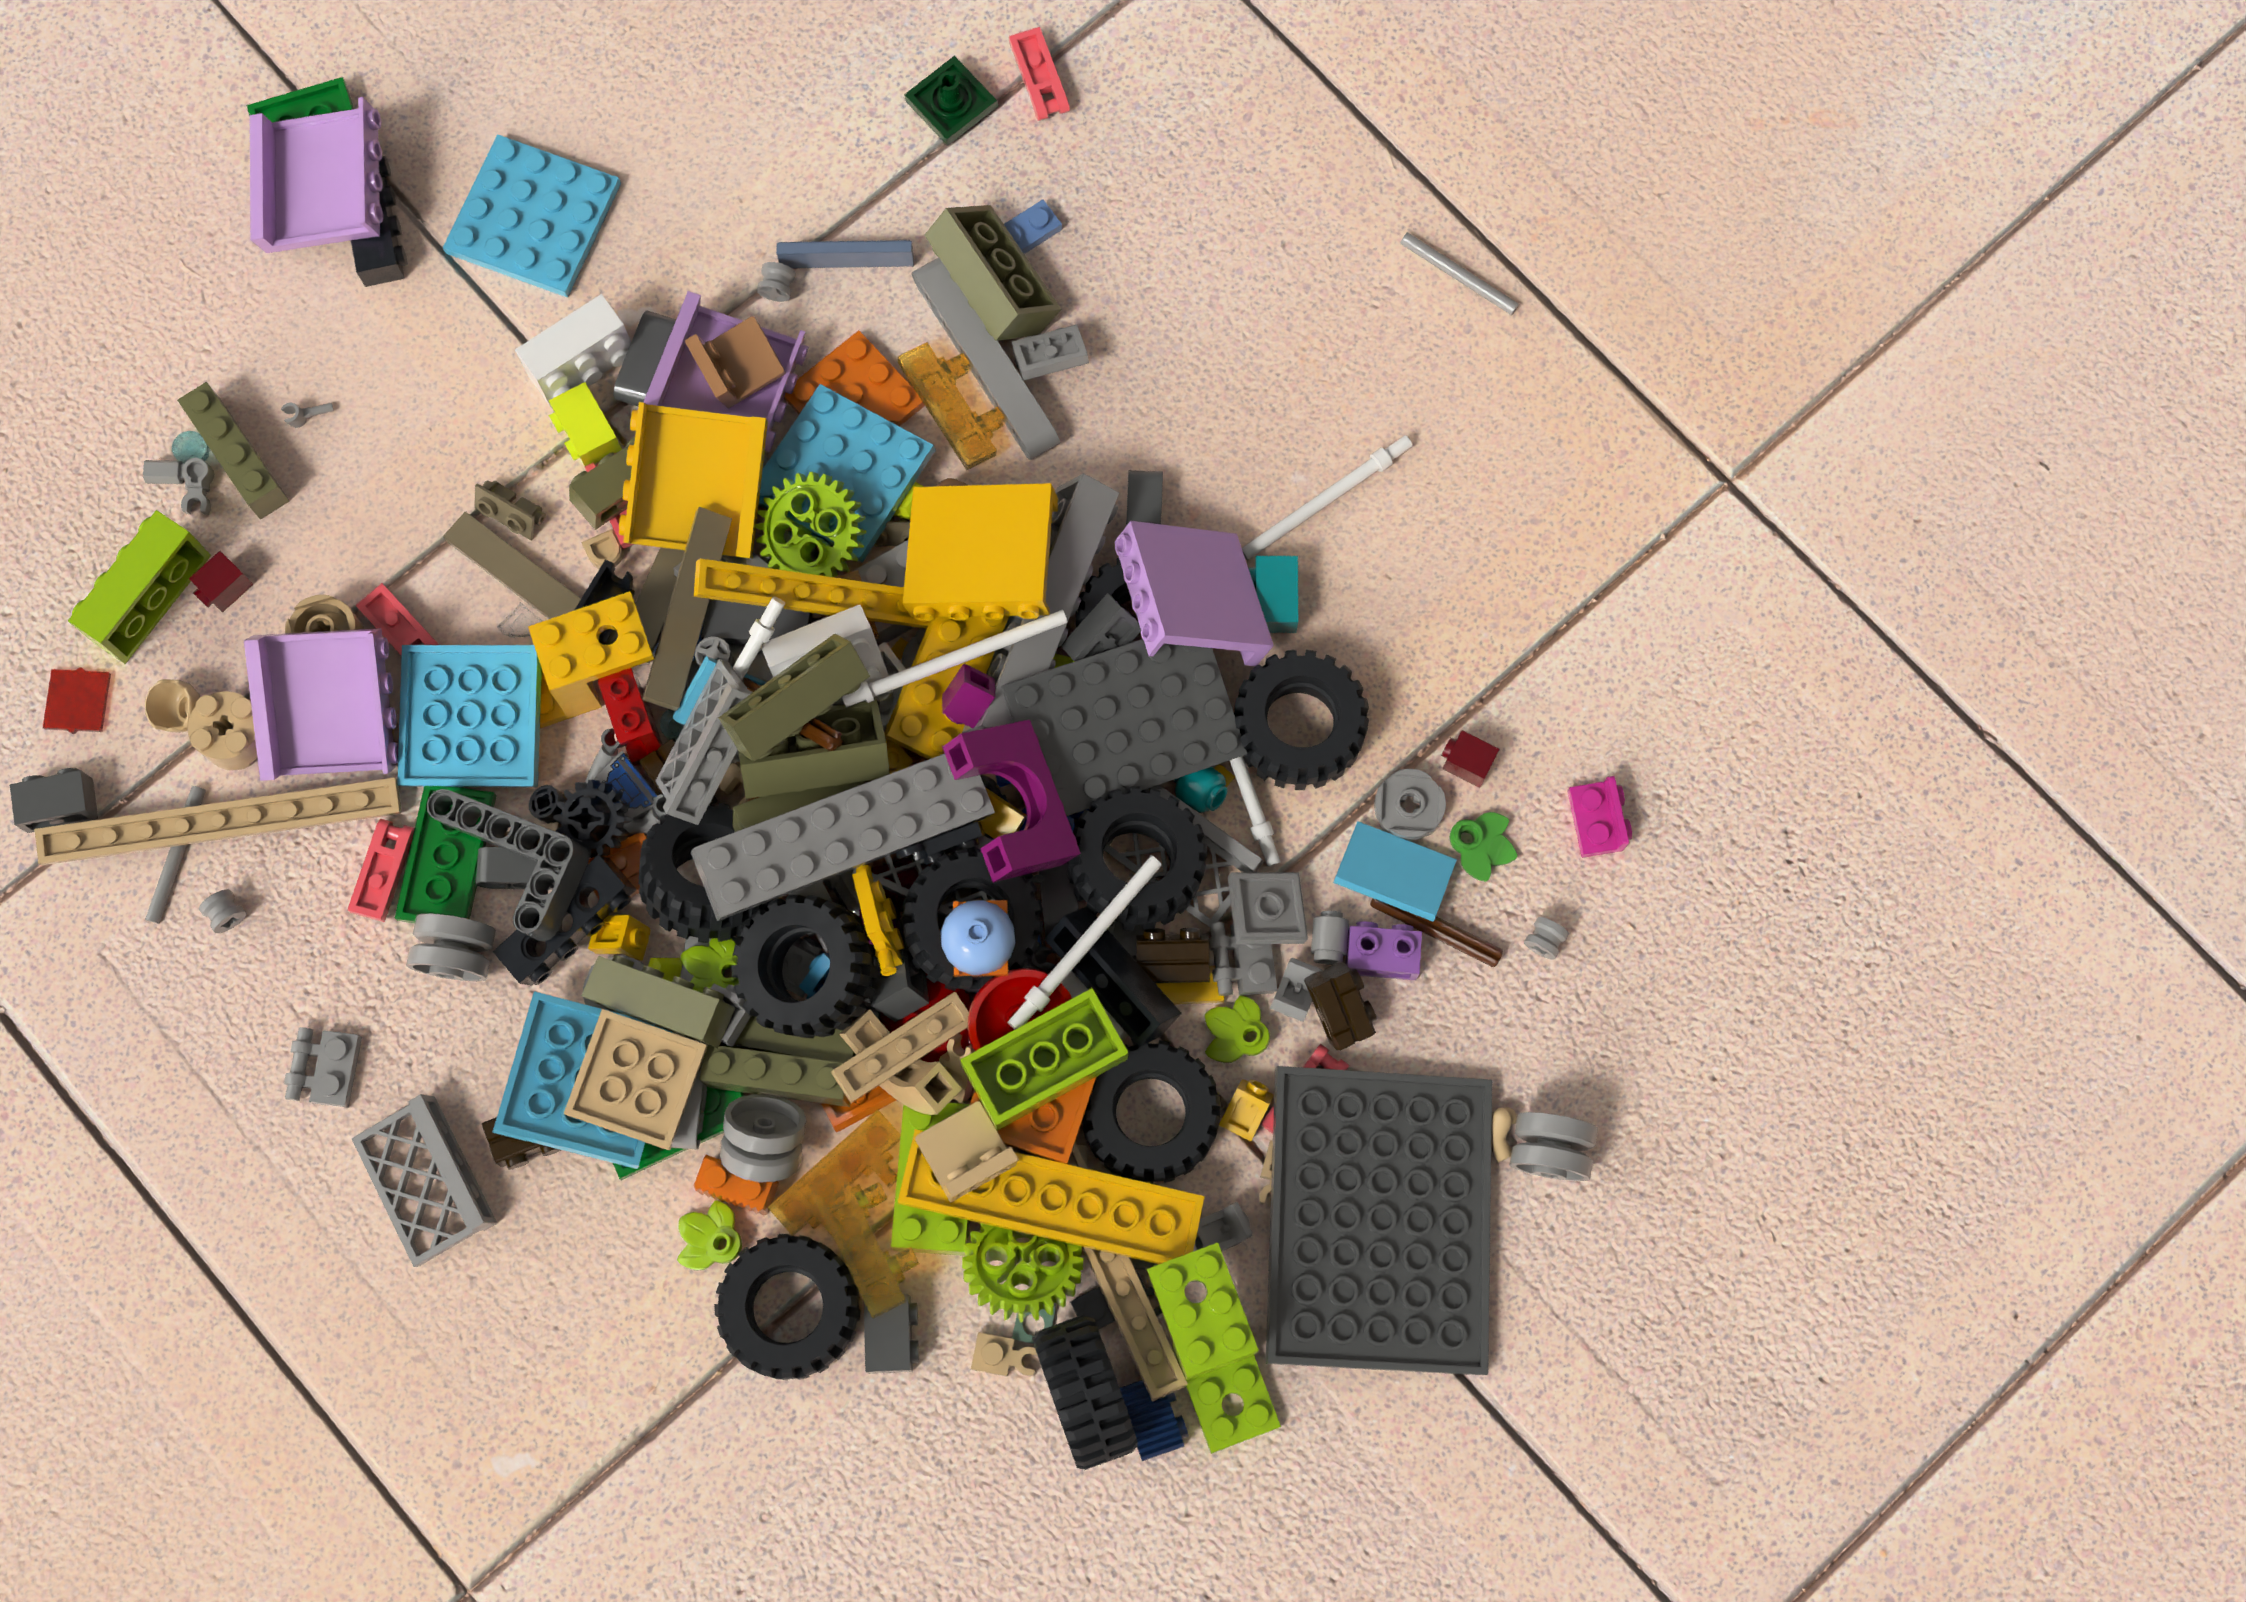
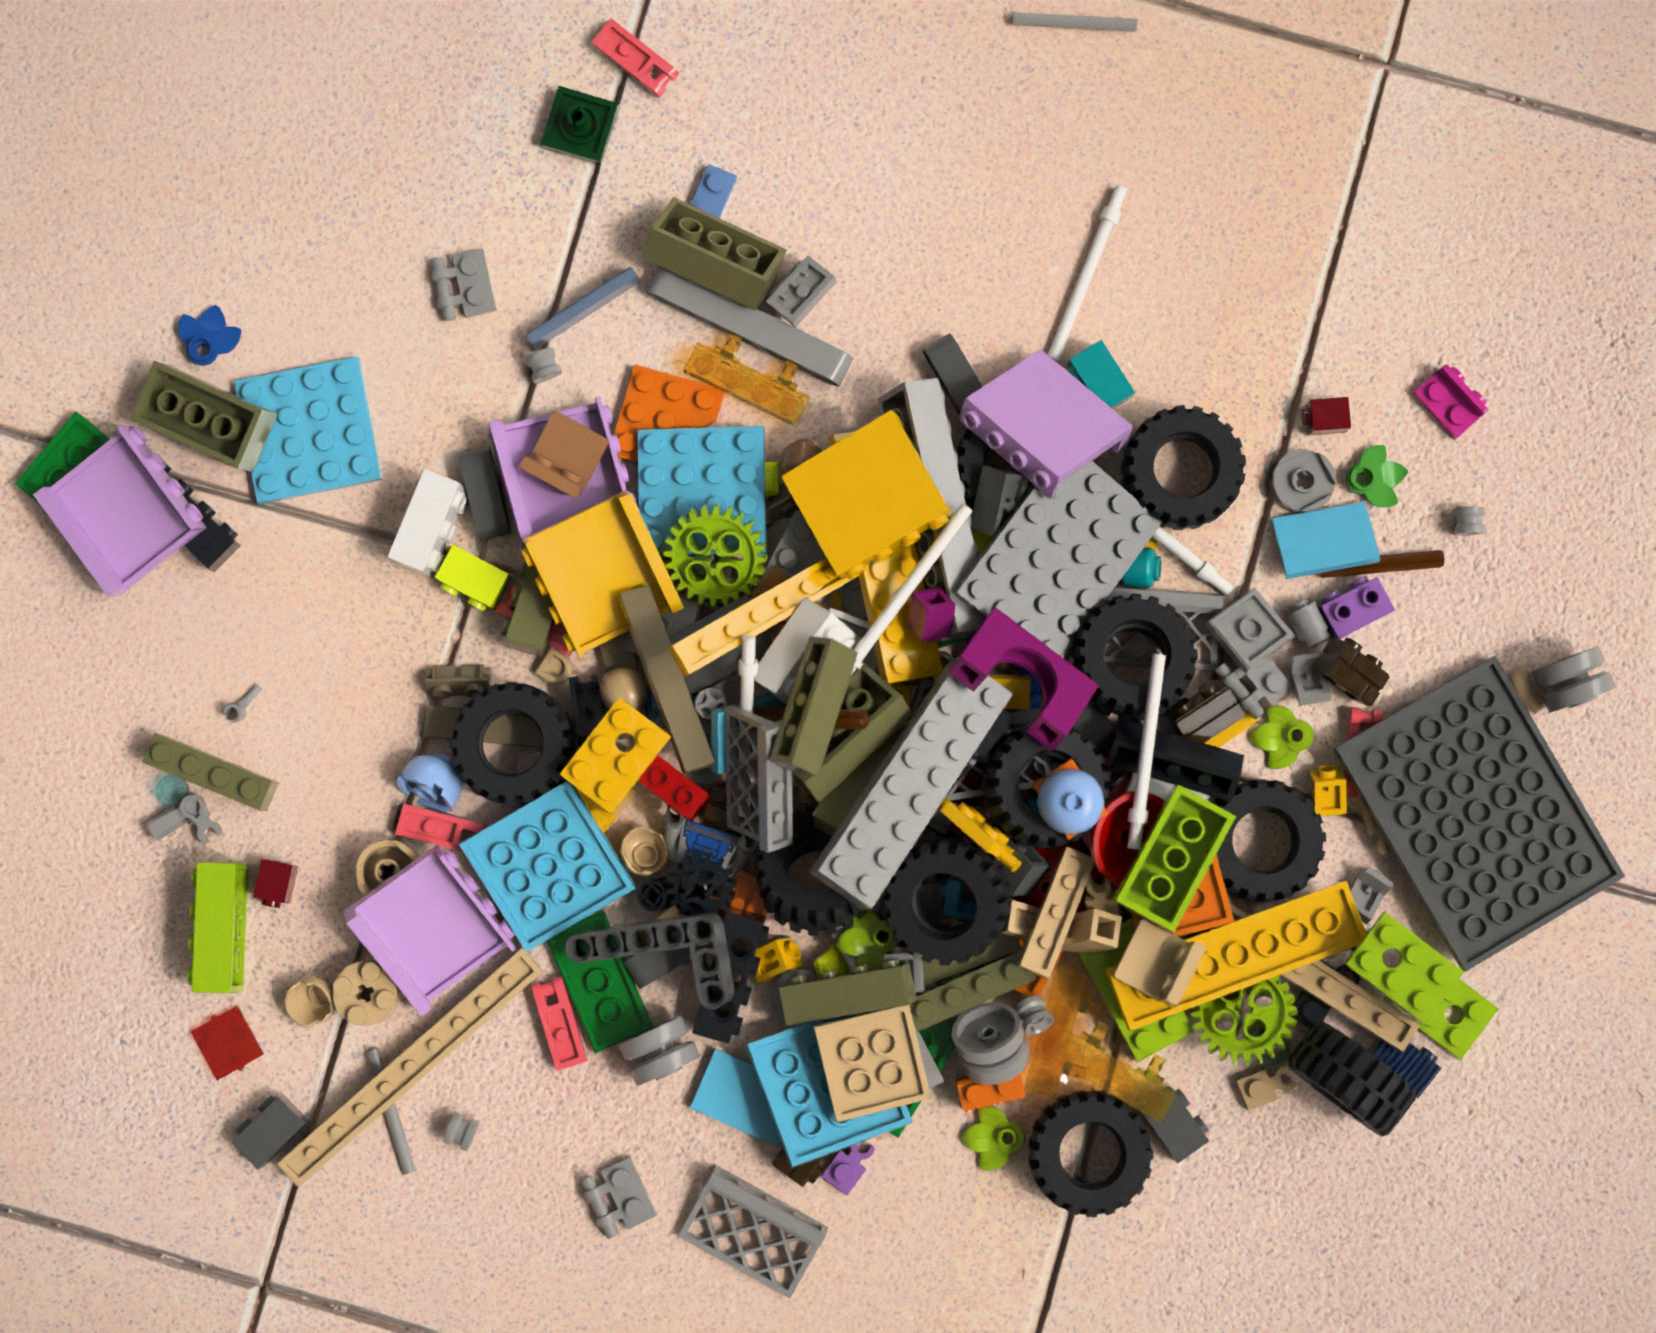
camera: 30 degrees left, 10 degrees up
(421, 577) = (433, 781): none -> light blue cylinder
(445, 142) = (203, 416): none -> olive brick
(485, 553) = (470, 731): none -> black tyre
(490, 1038) = (735, 1097): none -> medium azure tile
(506, 82) = (209, 331): none -> blue plate
(551, 1177) = (846, 1168): none -> medium lavender plate
(566, 759) = (644, 851): none -> tan hair
(652, 603) = (627, 685): none -> tan hair
(764, 179) = (473, 282): none -> light grey plate
(822, 1139) = (1034, 1015): none -> light grey wheel

